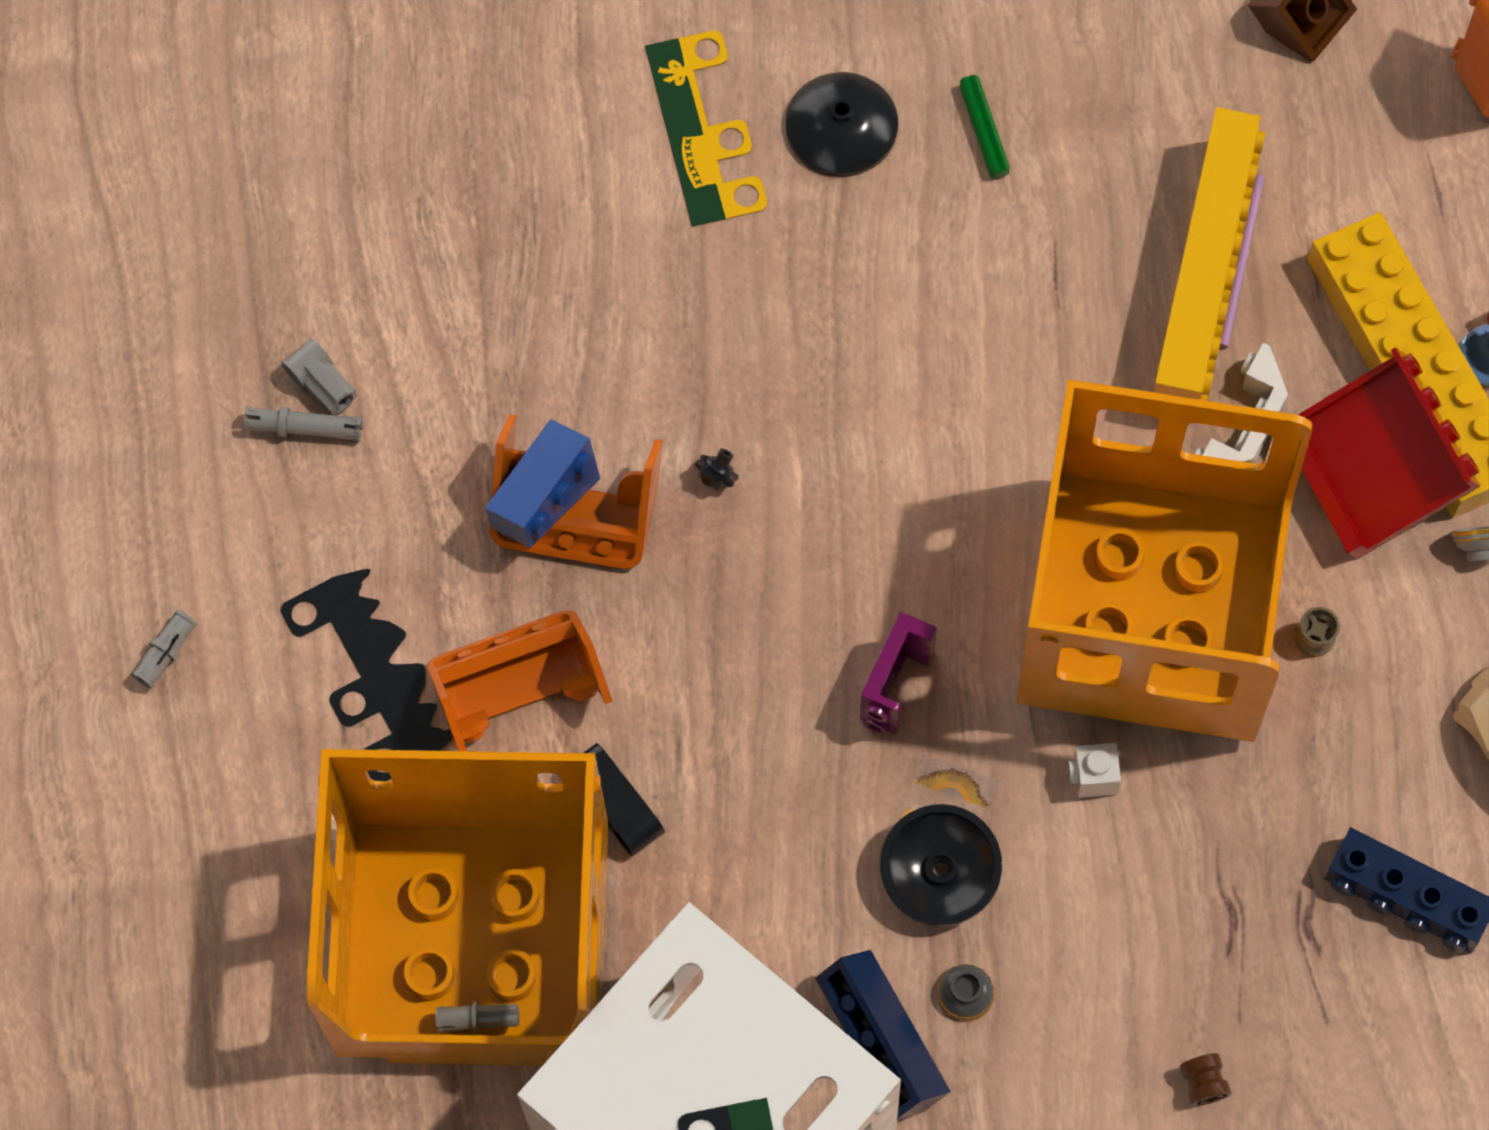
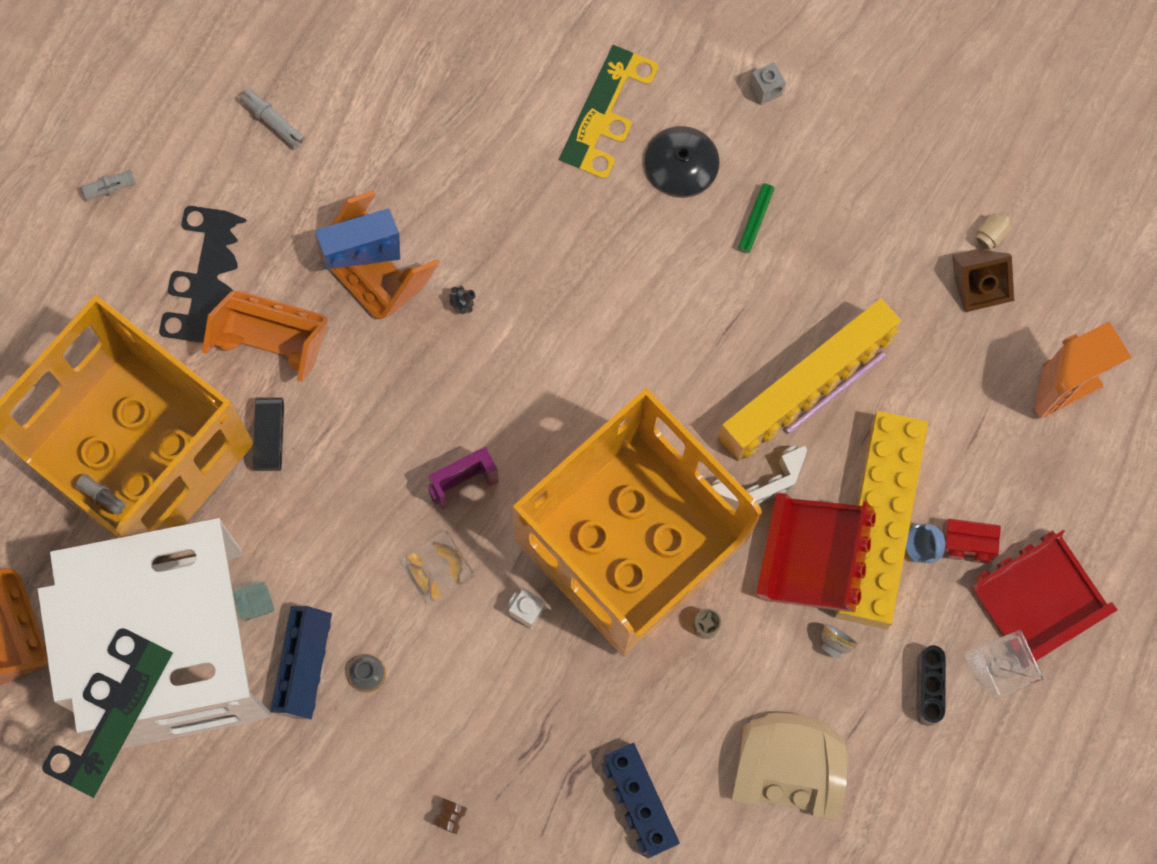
camera: 30 degrees right, 5 degrees up
(313, 369) = (299, 93): light grey piece -> none
(941, 836) = (390, 583): black dish -> none

